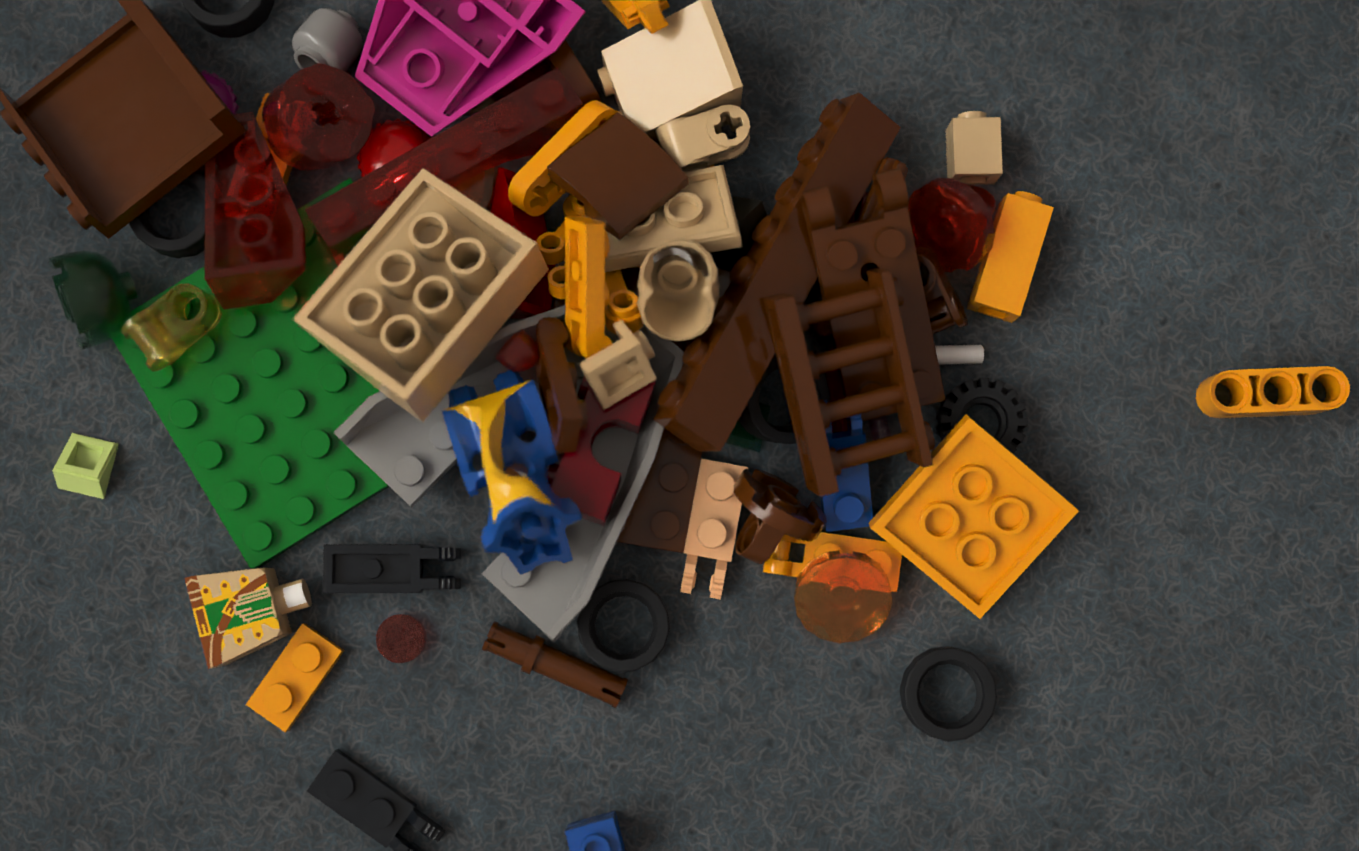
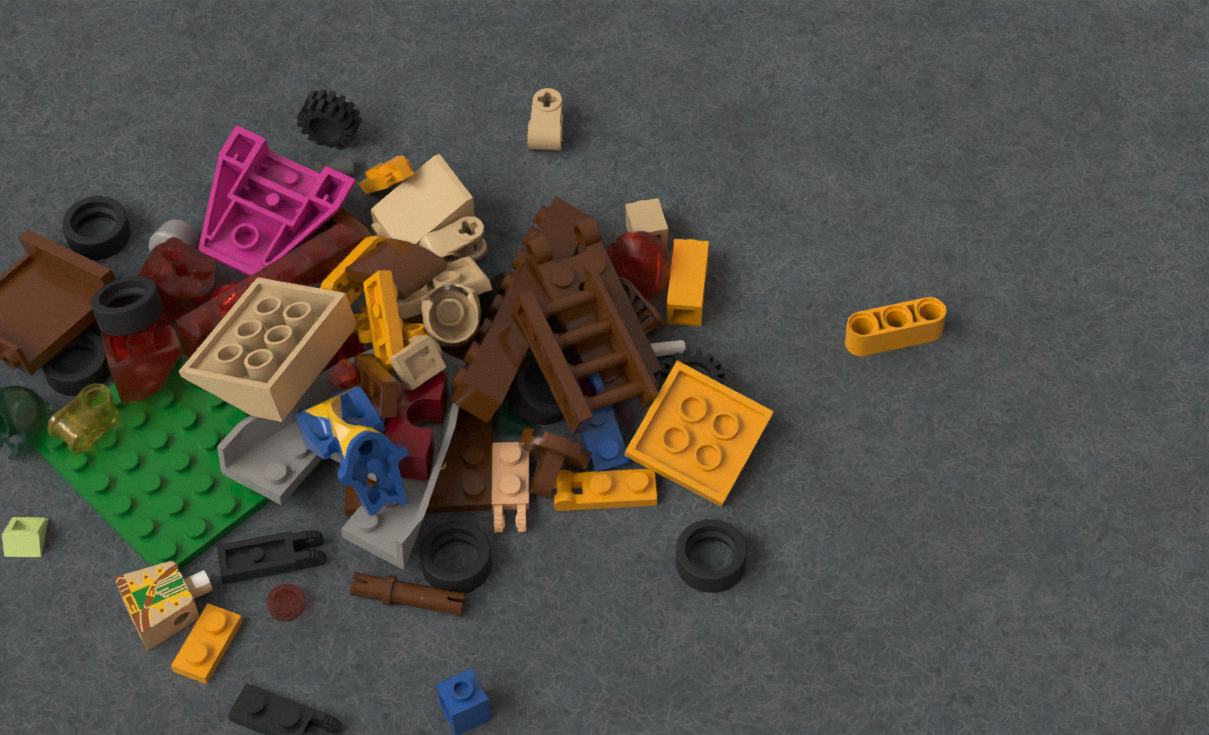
camera: 10 degrees left, 30 degrees down
(228, 141) = (127, 305): none -> black tyre
(842, 596) = (616, 504): clear orange tile -> none

